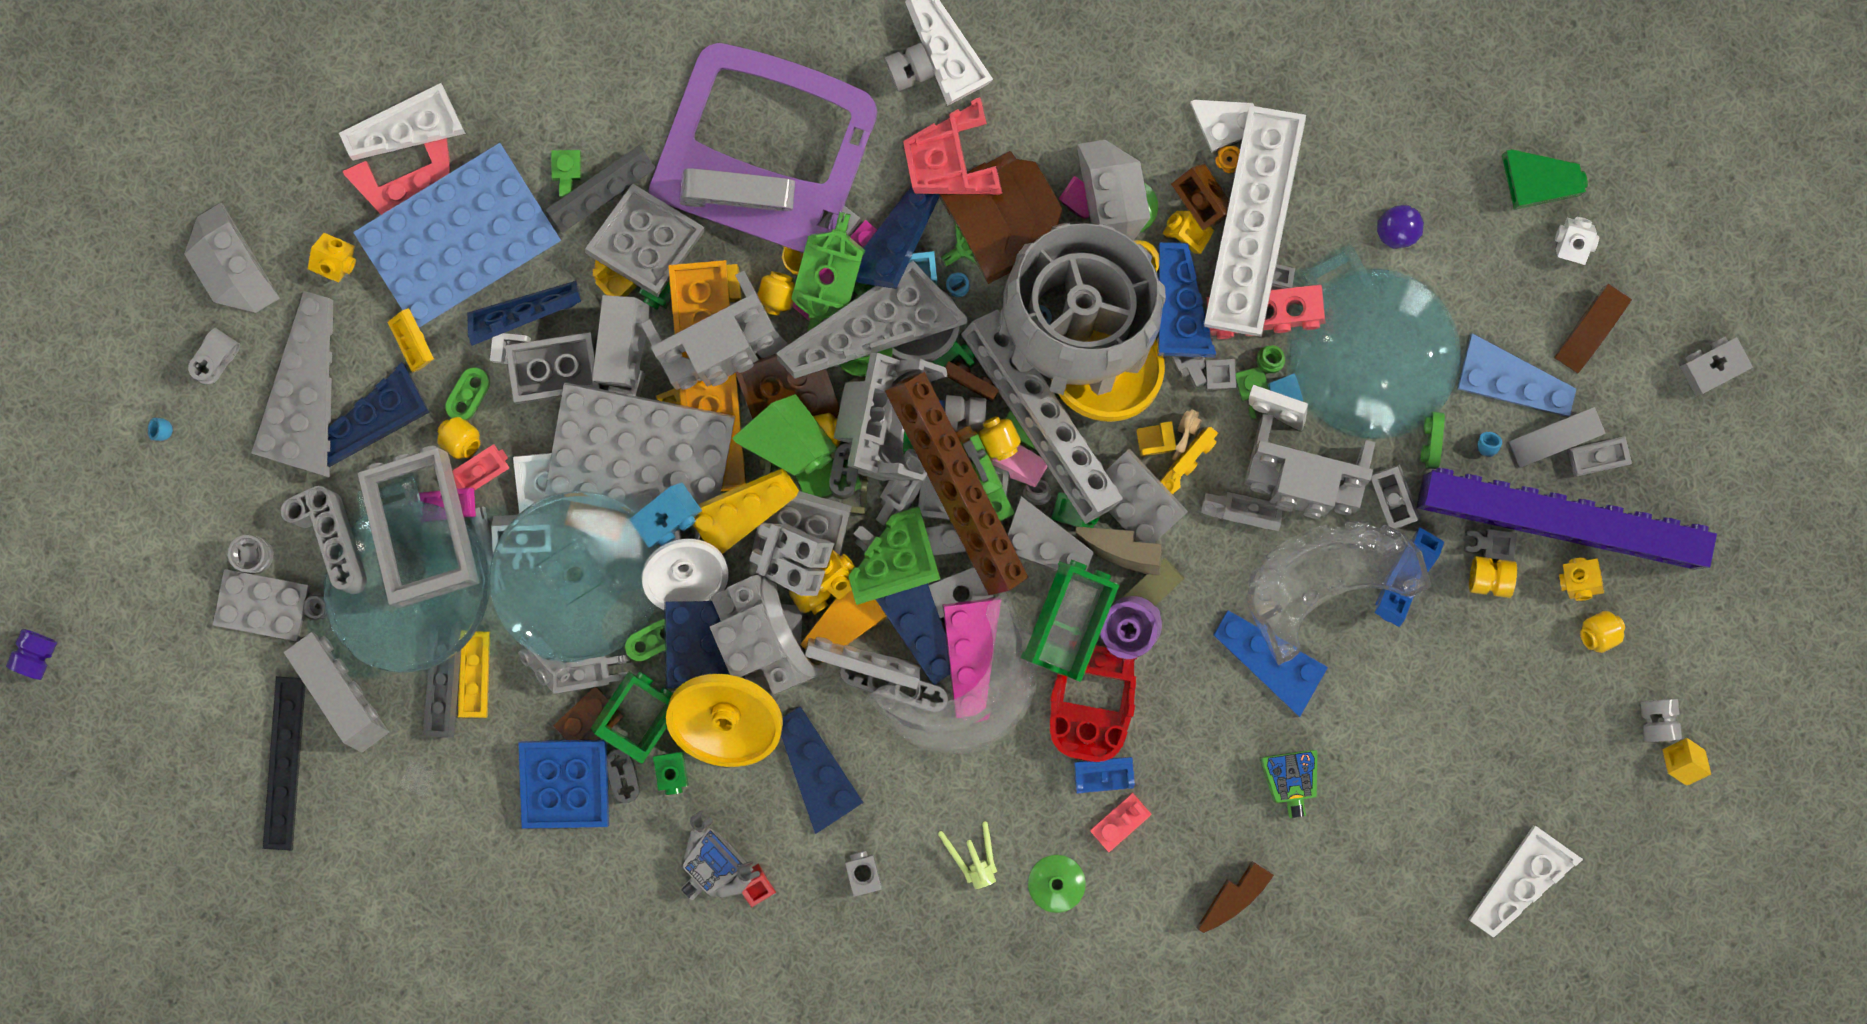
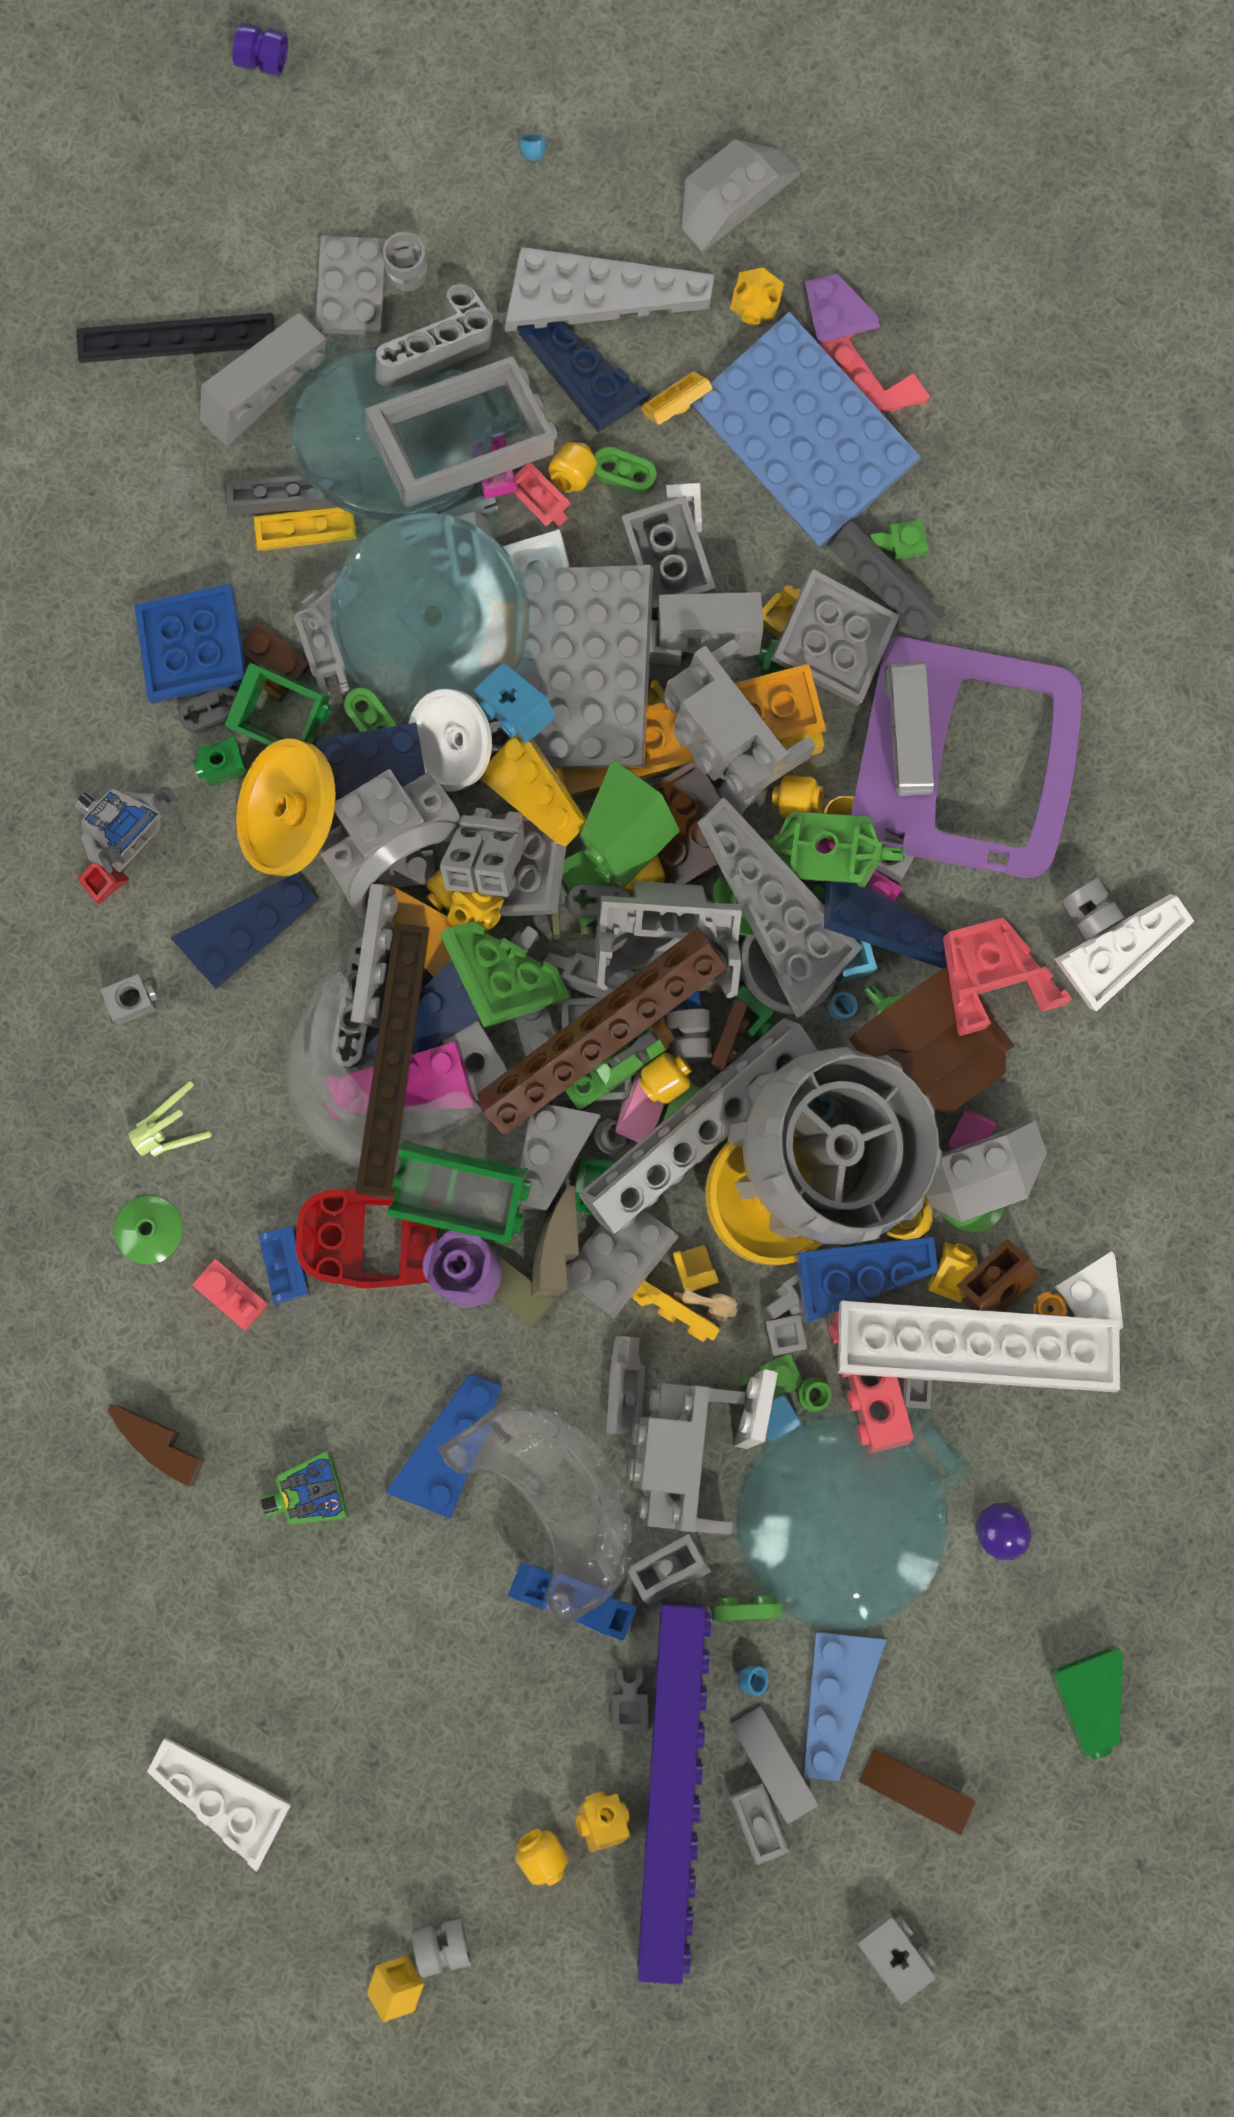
camera: 80 degrees right, 5 degrees down
(214, 354) = (625, 189): light grey piece -> none
(311, 609) = (356, 337): dark grey plate -> none
(353, 191) = (838, 309): none -> medium lavender wing
(410, 123) = (925, 357): white wing -> none
(508, 315) = (724, 502): dark blue wing -> none
(954, 658) = (392, 1061): none -> dark brown plate
(1493, 577) = (589, 1707): yellow wheel -> none
(1576, 240) = (1024, 1754): white brick -> none

